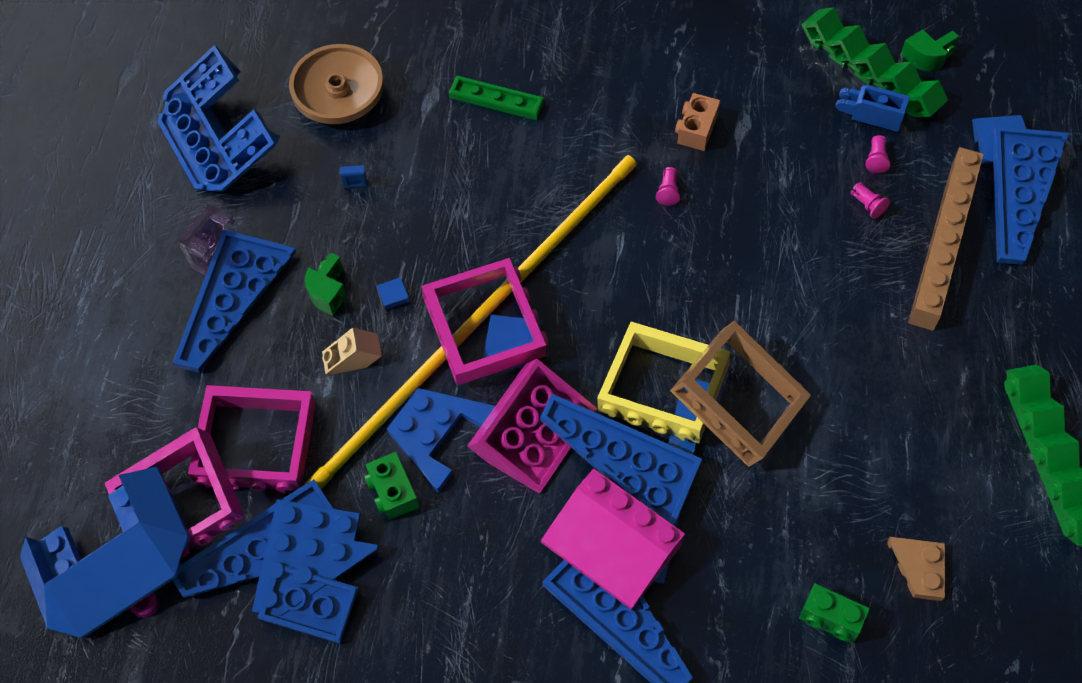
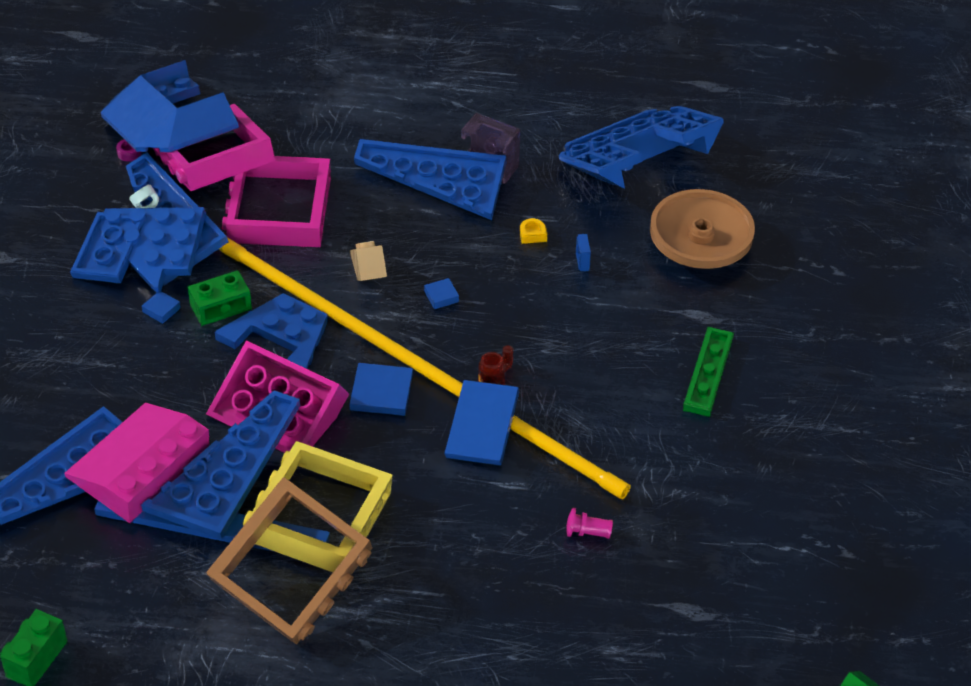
camera: 85 degrees right, 15 degrees down
(246, 566) = (142, 195): none -> light aqua tile
(315, 219) = (533, 231): none -> yellow tile
(322, 285) = (445, 235): green brick -> none
(395, 545) = (161, 307): none -> blue tile
(497, 362) = (384, 319): dark pink window -> none
(498, 247) = (493, 366): none -> clear red piece
(561, 257) = (482, 422): none -> blue tile
(697, 122) = (686, 555): nougat brick -> none

